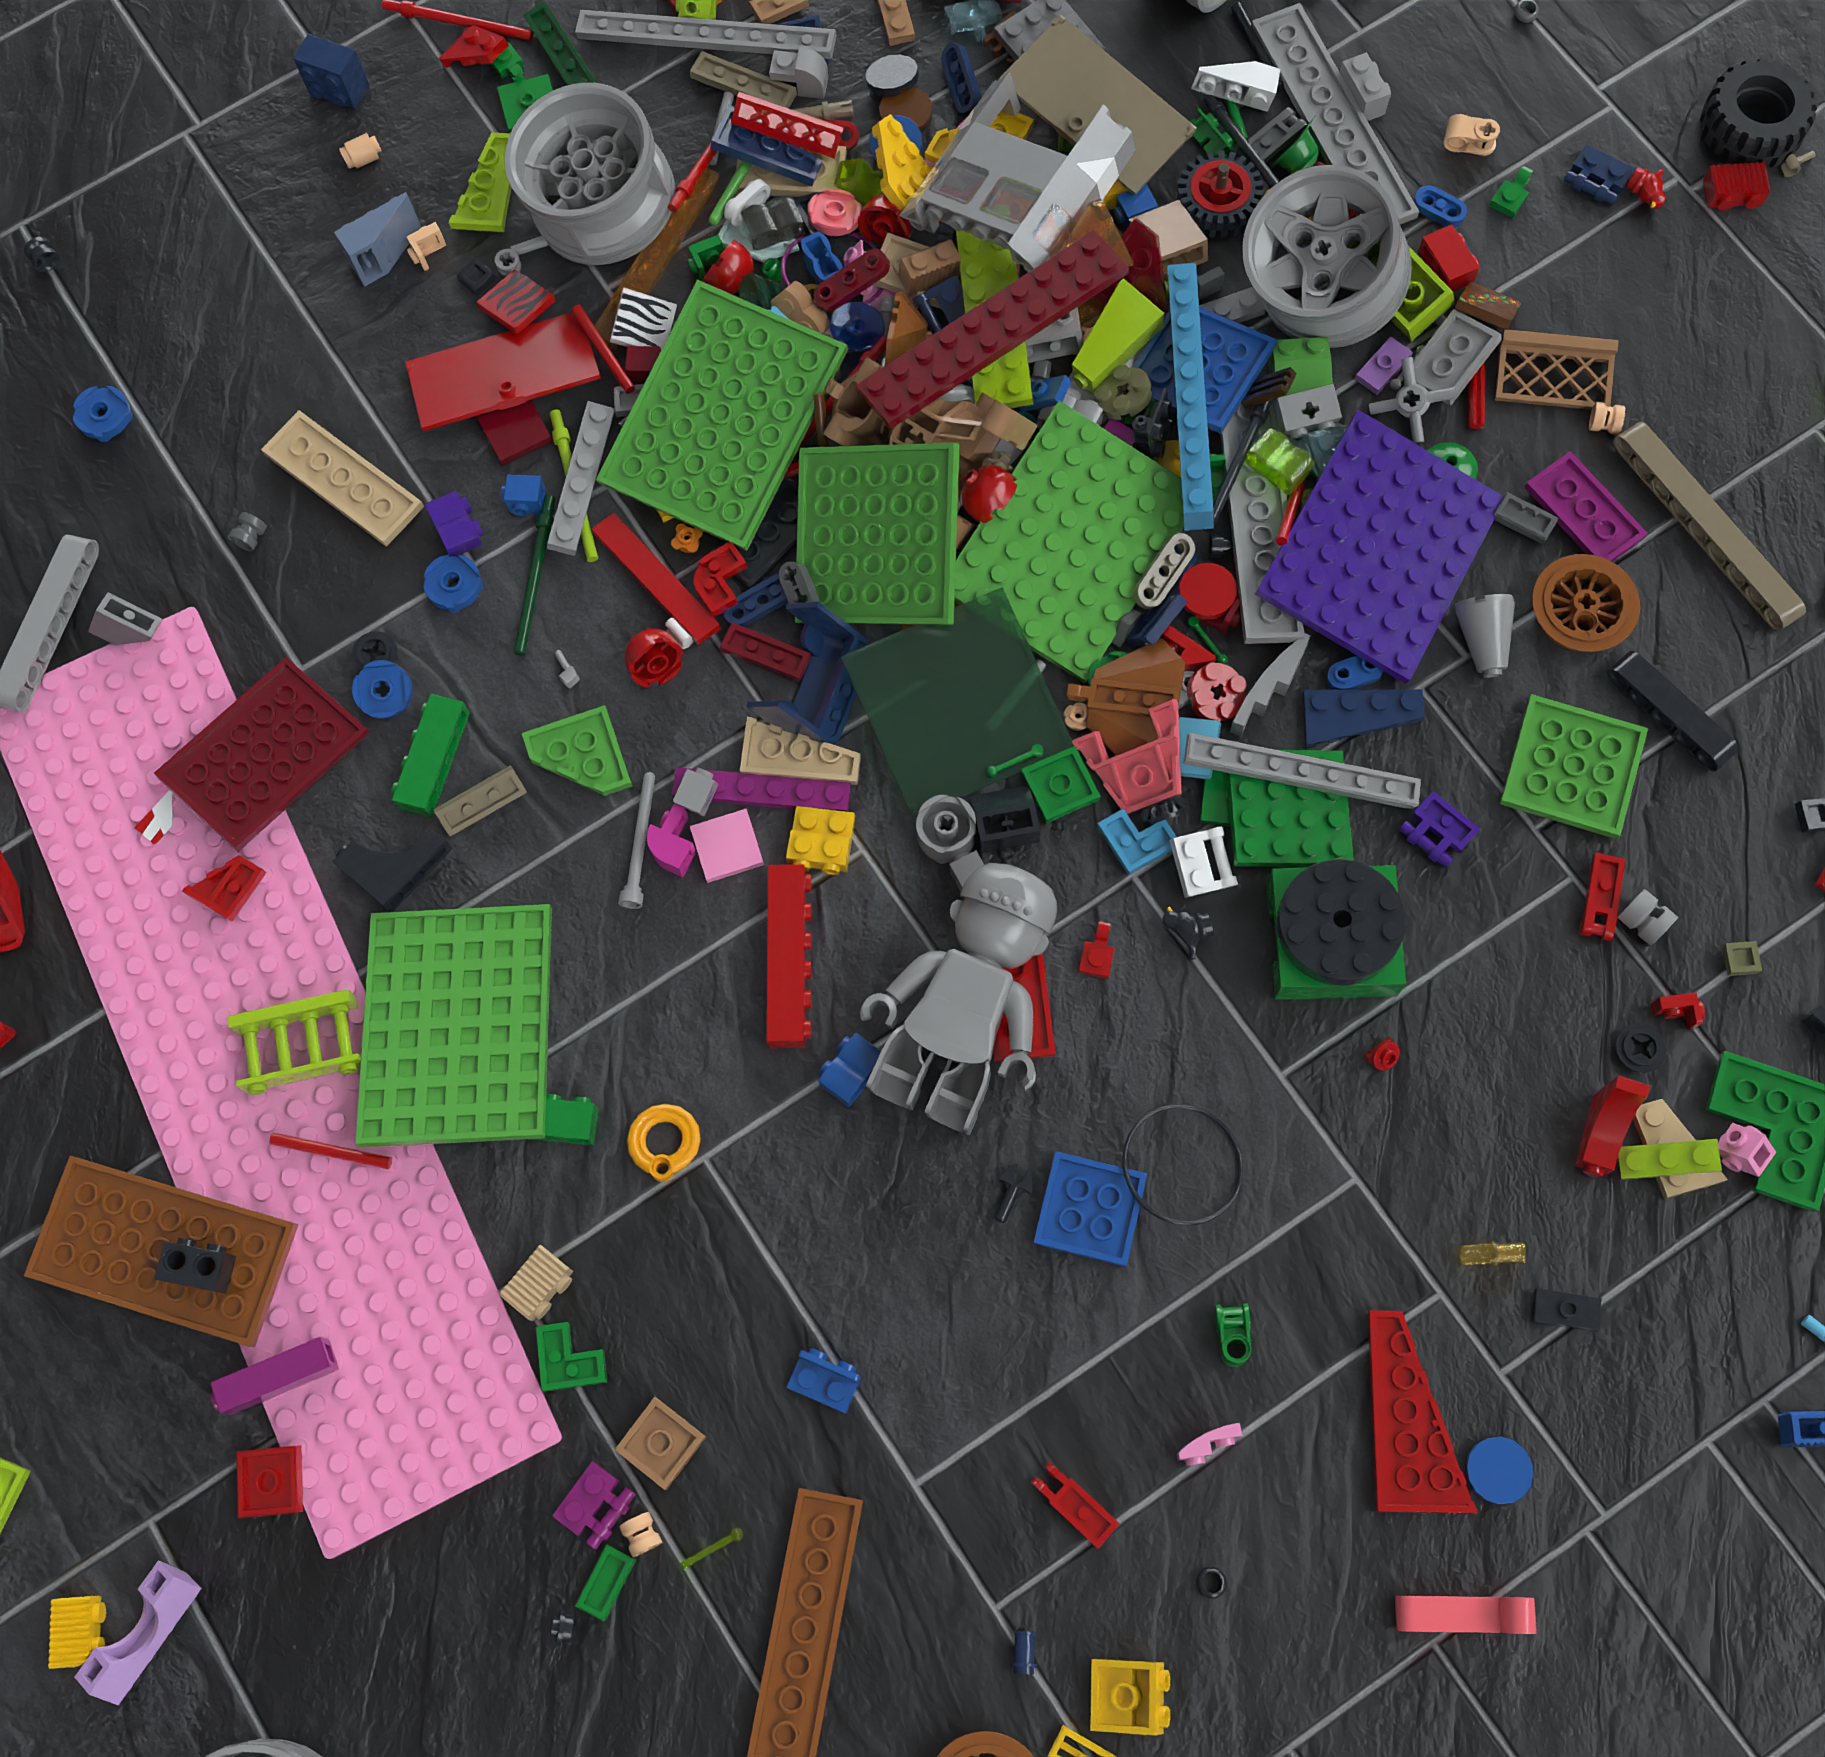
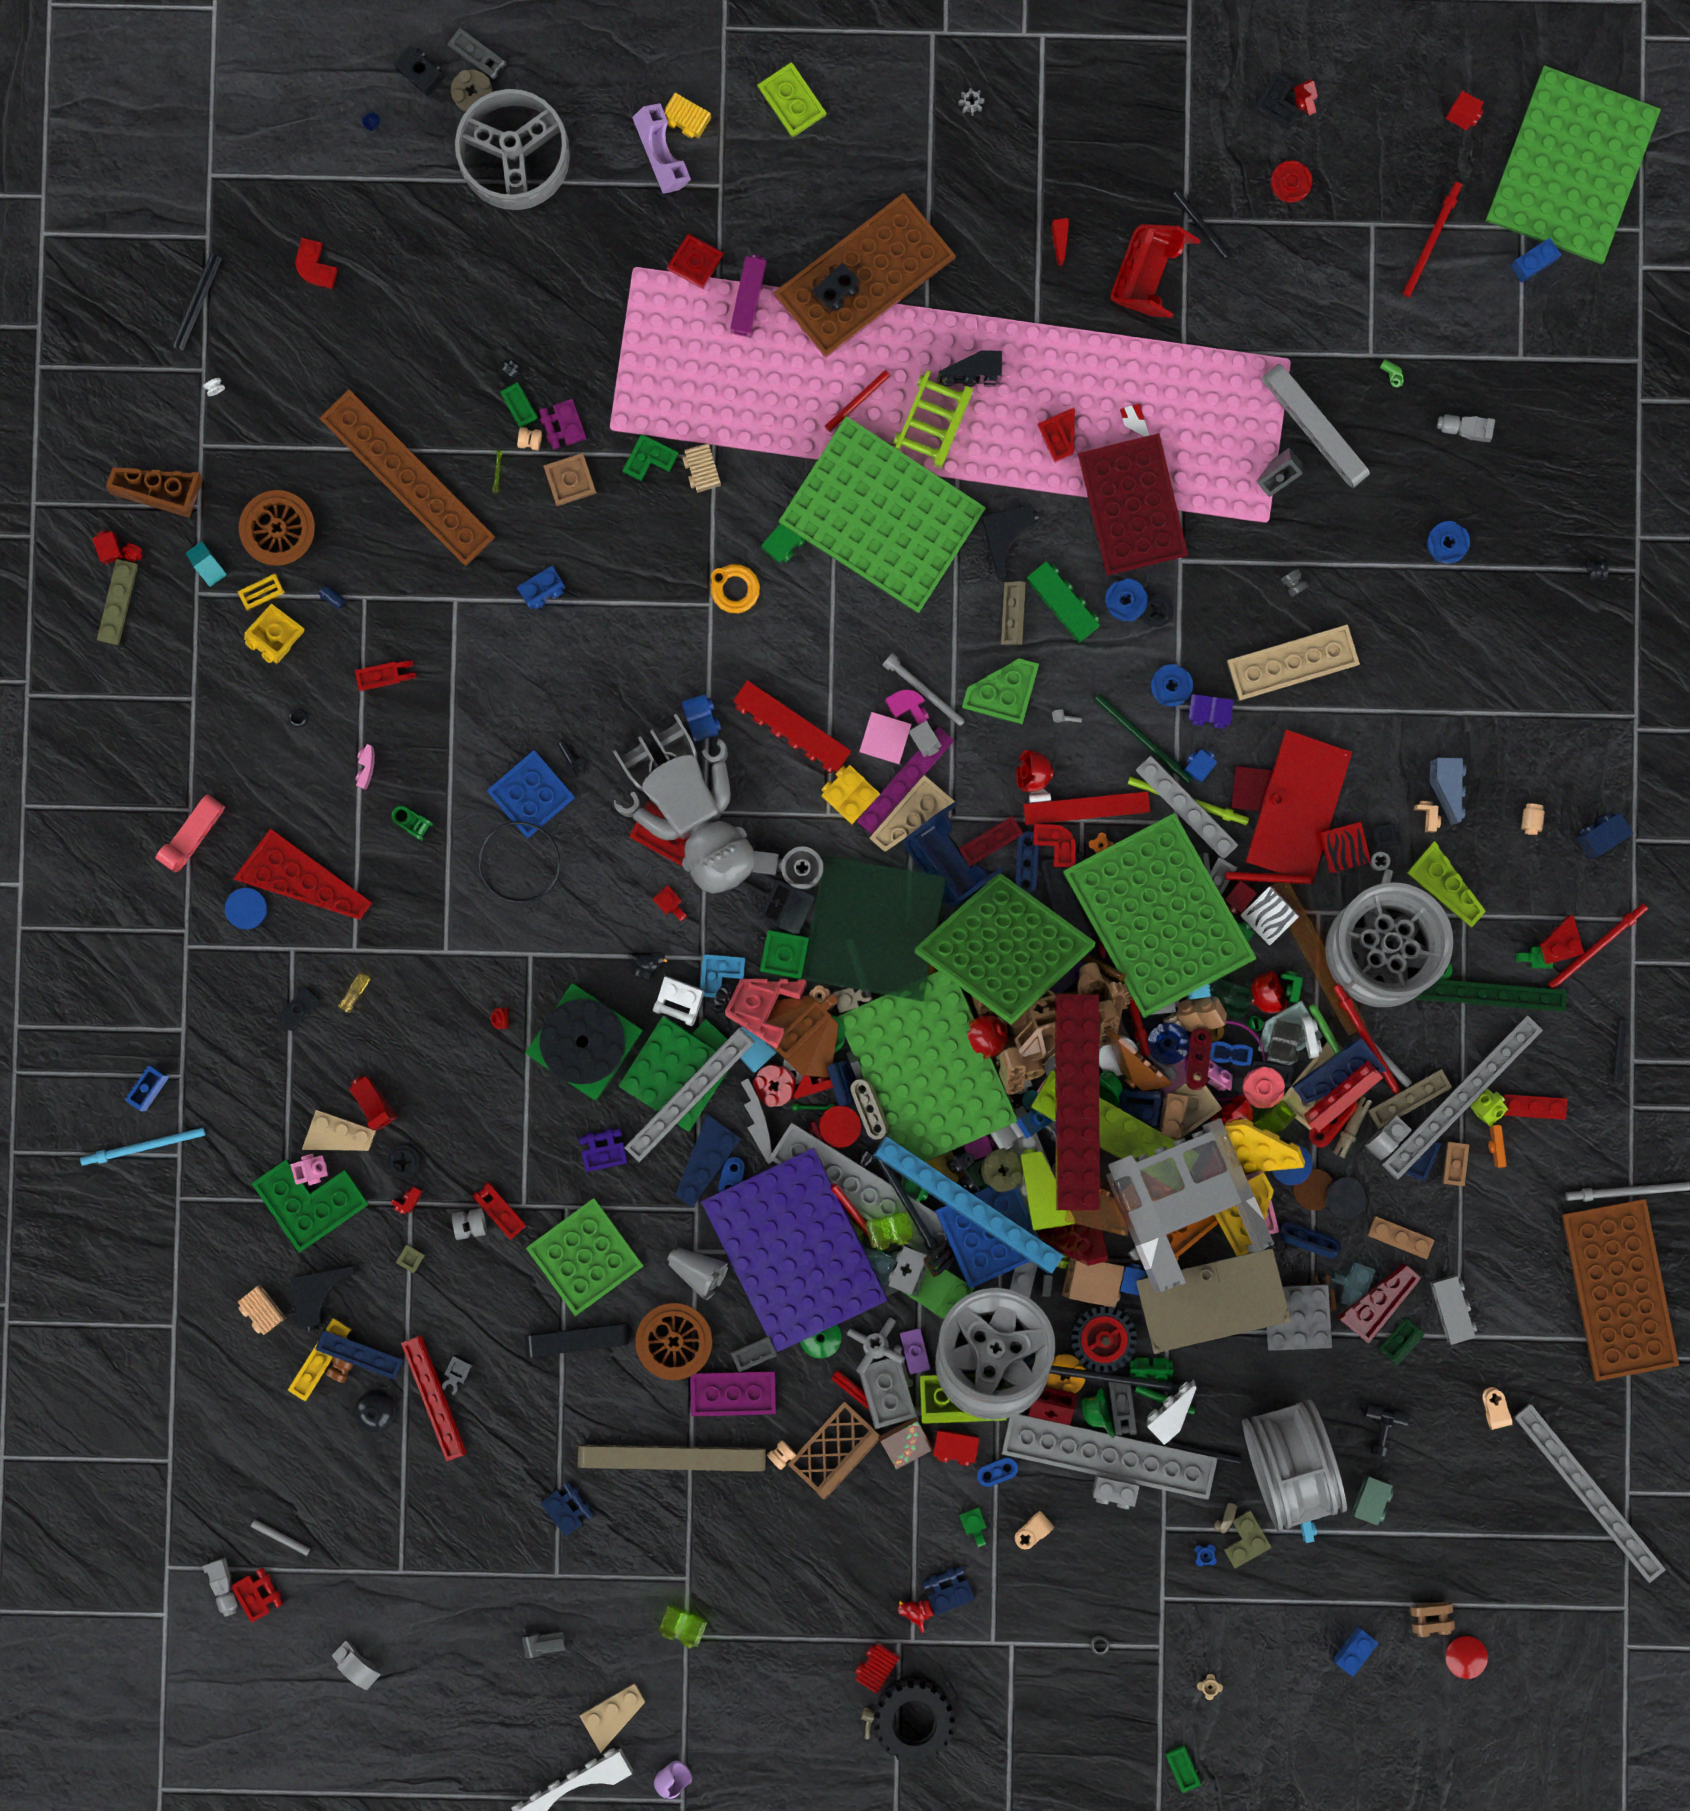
camera: 120 degrees right, 15 degrees up
(195, 1021) = (979, 368): none -> black slope
(521, 95) = (1494, 951): green plate -> none
(800, 586) = (1013, 886): dark grey beam -> none
(1037, 751) = (813, 955): green hinge -> none
(1056, 679) = (849, 999): none -> dark tan plate
(1669, 1159) = (333, 1124): lime plate -> none

